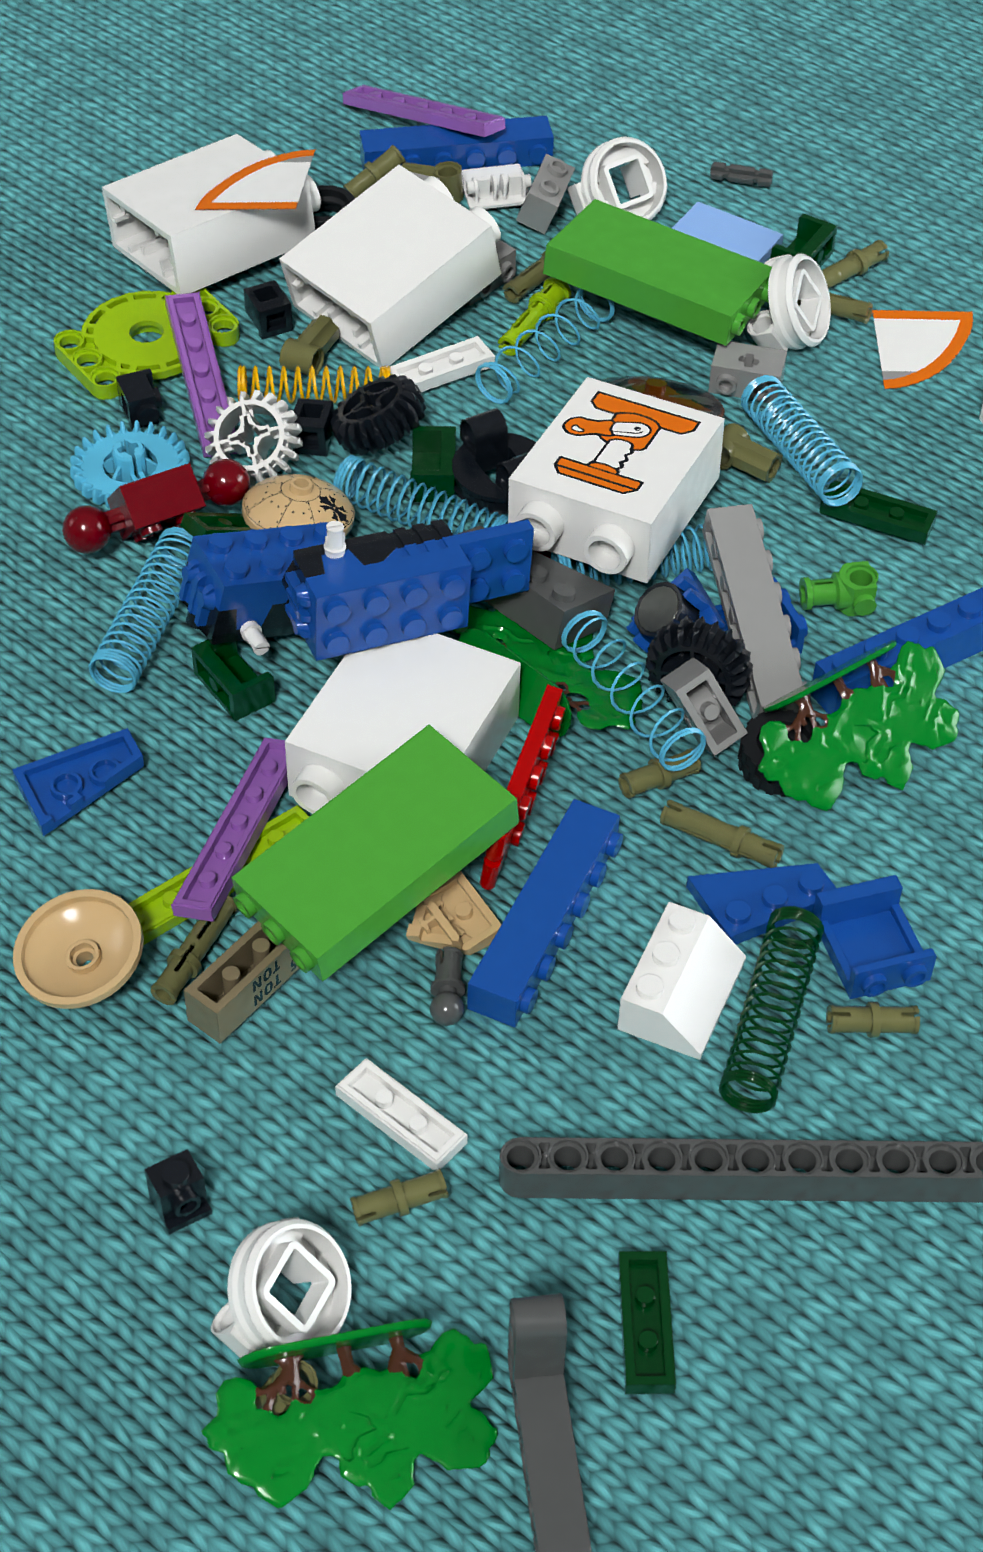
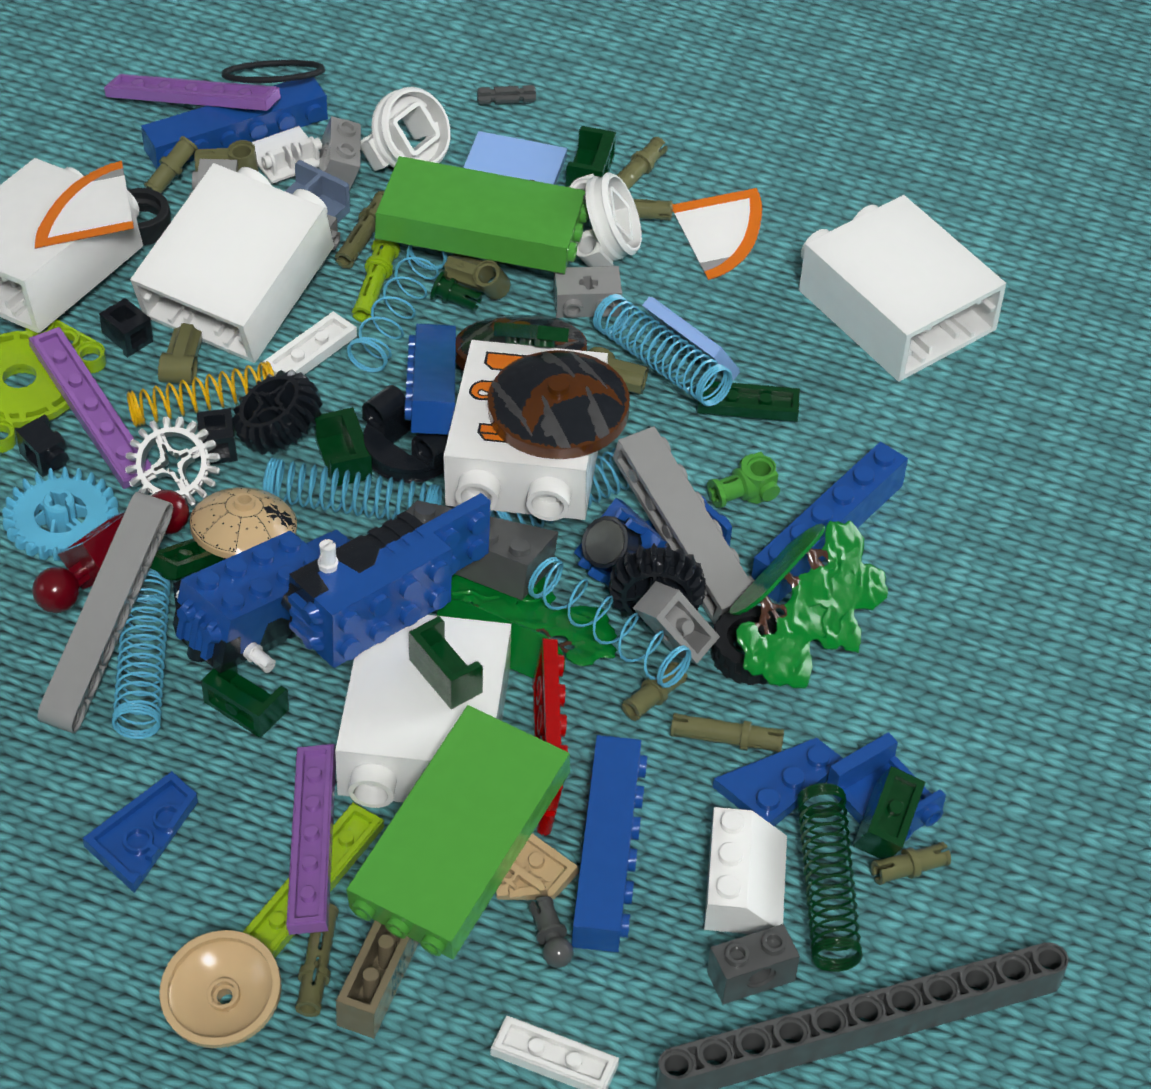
camera: 20 degrees left, 0 degrees up
(120, 558) = (105, 612): none -> light grey beam
(426, 681) = (442, 665): none -> dark green panel
(517, 225) = (327, 187): none -> sand blue panel
(533, 109) = (273, 79): none -> black piece
(534, 411) = (431, 379): none -> blue brick
(606, 342) = (454, 292): none -> dark green pin
(639, 332) = (476, 275): none -> olive piece
(649, 454) = (558, 404): none -> dish
(651, 1076) = (753, 964): none -> dark grey brick
(654, 384) = (531, 334): none -> dark green plate
(838, 433) = (688, 332): none -> light blue tile
(864, 959) = (889, 813): none -> dark green panel

